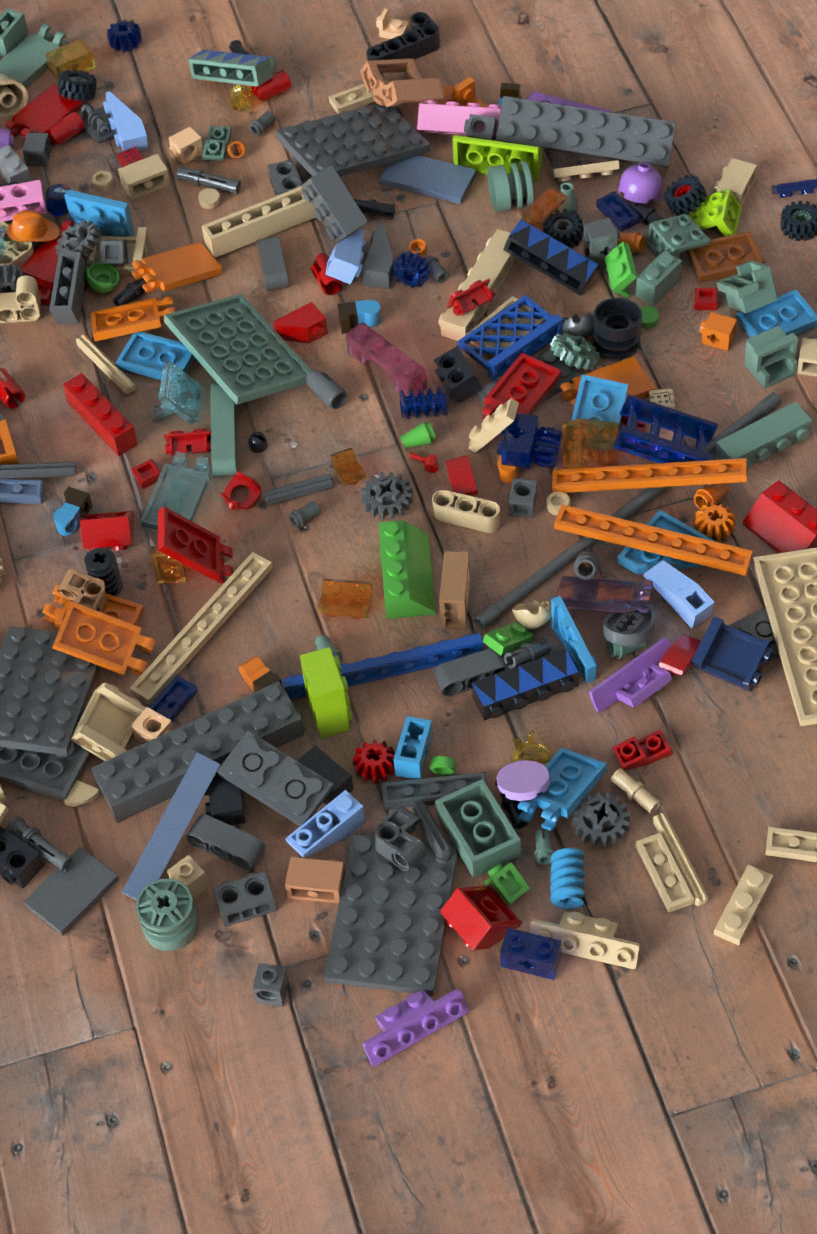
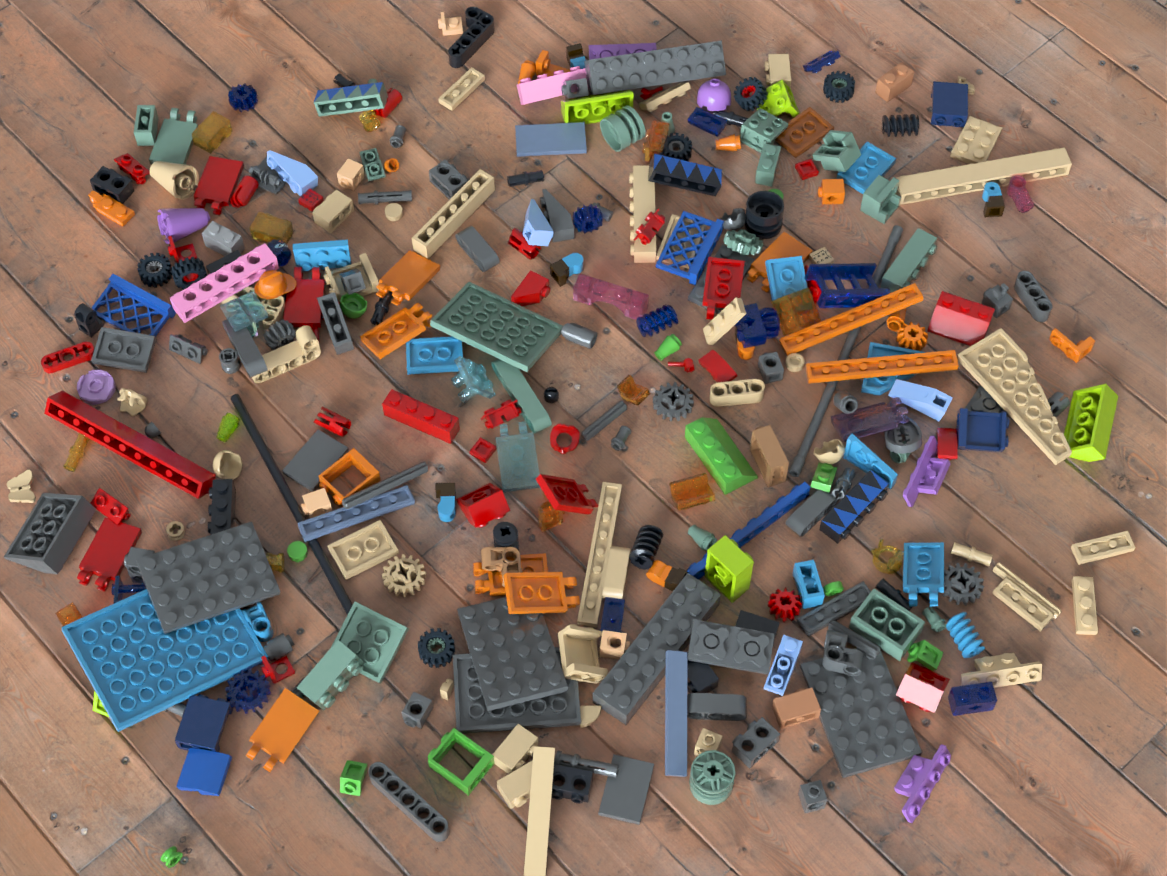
camera: 30 degrees left, 5 degrees up
(37, 149) = (232, 216): dark grey brick -> none
(67, 171) = (268, 228): none -> clear yellow brick
(77, 85) = (232, 152): black bush -> none
(79, 238) = (320, 282): dark grey gear -> none
(102, 180) = (300, 224): tan tile -> none
(105, 364) = (397, 374): tan axle -> none
(206, 654) = (616, 572): none -> tan beam
(254, 637) = (646, 546): none -> black piece
(333, 204) = (506, 187): dark grey brick -> none
(353, 140) = (481, 130): dark grey plate -> none
(399, 91) = (506, 73): nougat window -> none
(421, 246) = (580, 197): orange hinge -> none
(458, 375) = (672, 287): black brick -> none
(523, 780) = (900, 577): lavender tile -> none
(568, 161) = (648, 93): none -> red hand
(600, 240) = (715, 151): dark grey brick -> none
(621, 269) = (739, 167): bright green bracket -> none
(641, 752) = (958, 523): red slope -> none

